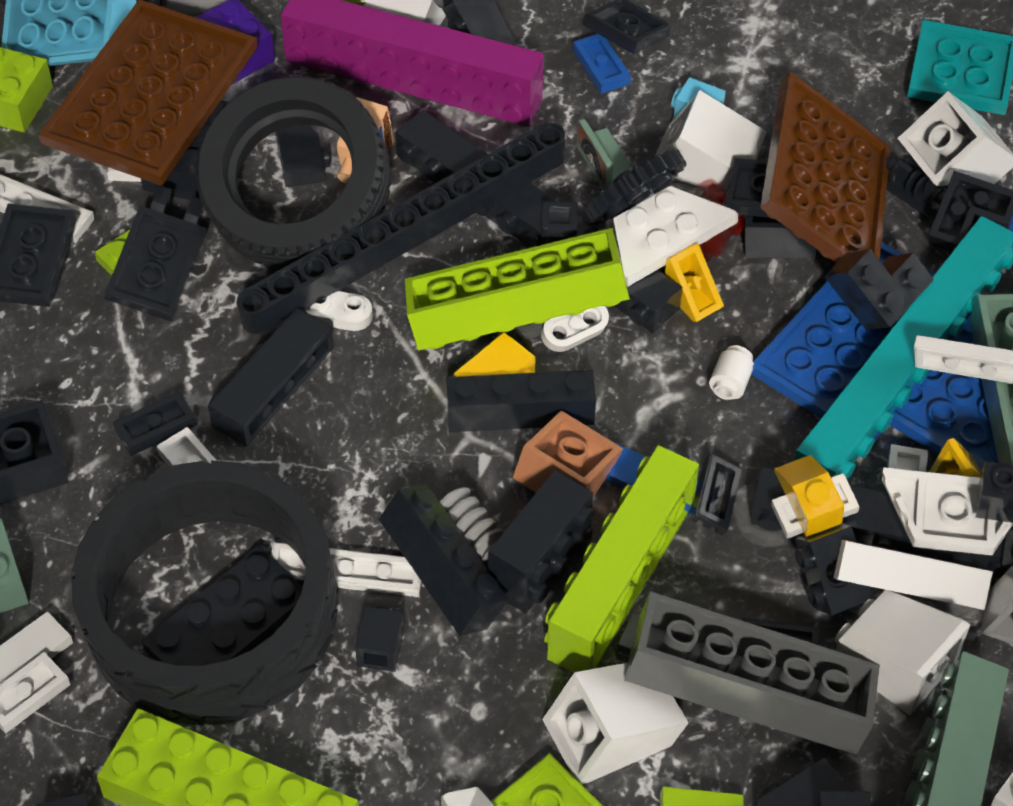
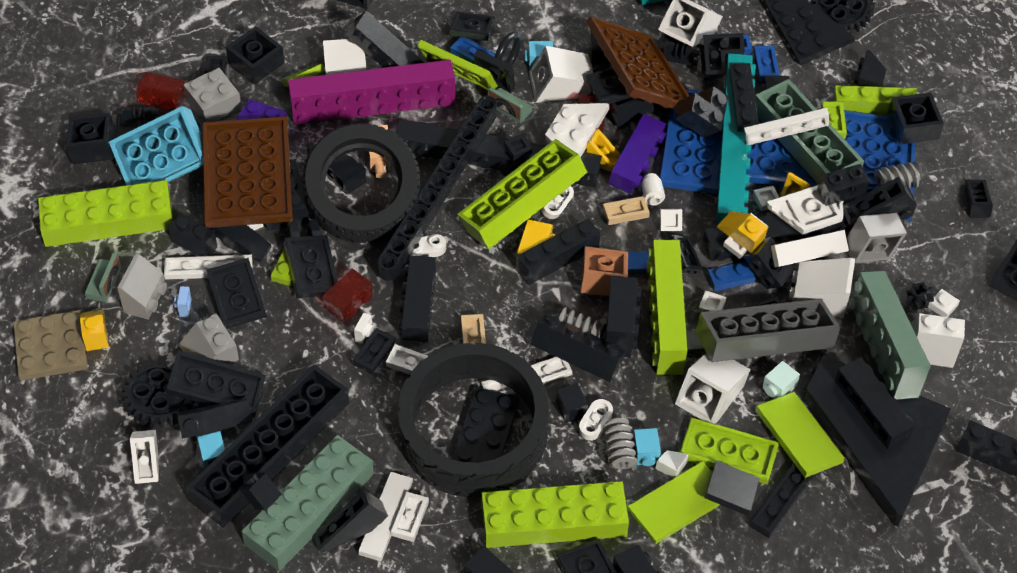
camera: 30 degrees left, 0 degrees up
(35, 161) = (193, 236): none -> black brick
(95, 188) = (243, 240): none -> black slope
(162, 382) = (363, 328): none -> white plate
(173, 326) = (348, 295): none -> clear red brick
(313, 464) = (473, 328): none -> tan plate
(397, 682) = (594, 421): none -> white plate
(404, 739) = (619, 443): none -> light grey piece
(444, 764) = (647, 446): none -> medium azure brick
(560, 71) = (460, 66): none -> lime tile
(610, 97) = (501, 70): none -> black tile
(635, 186) = (546, 112): black gear -> none
(669, 386) = (626, 210): none -> tan plate
(705, 589) = (711, 302): none -> white plate
(728, 431) = (670, 219): none -> white plate
(730, 766) = (780, 380): none -> light aqua brick
(744, 309) = (637, 154): none -> dark purple brick
(765, 561) = (731, 276): none -> blue plate
(959, 287) = (743, 95): none -> black plate

